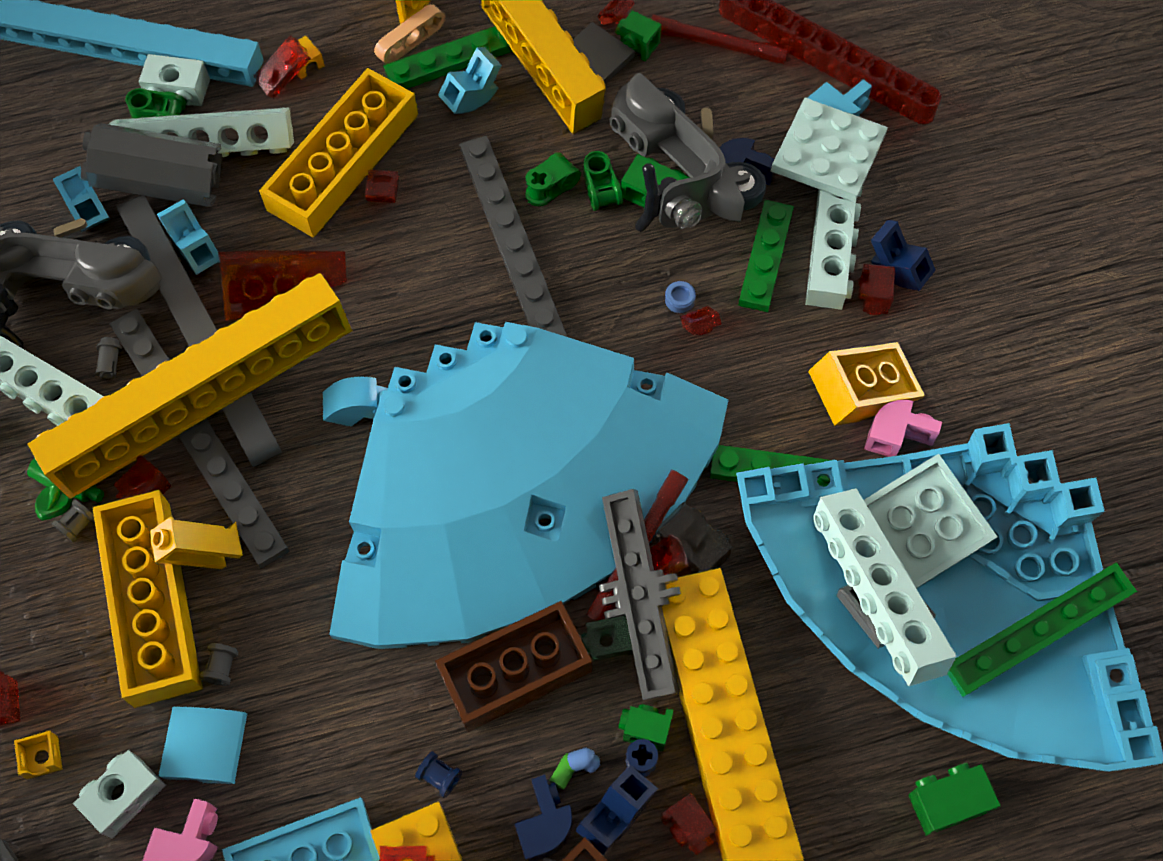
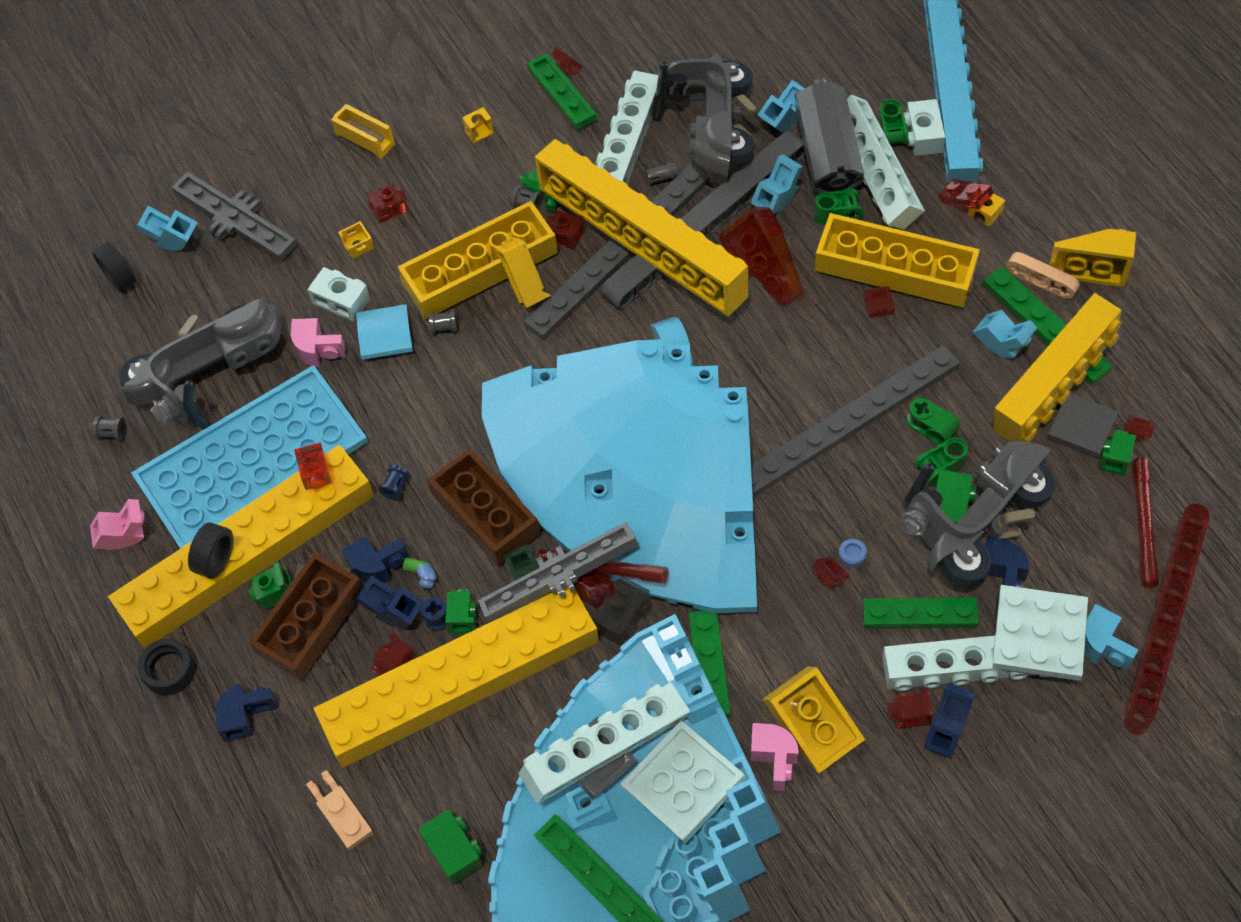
camera: 80 degrees right, 5 degrees down
(242, 191) = (837, 203): none -> green piece

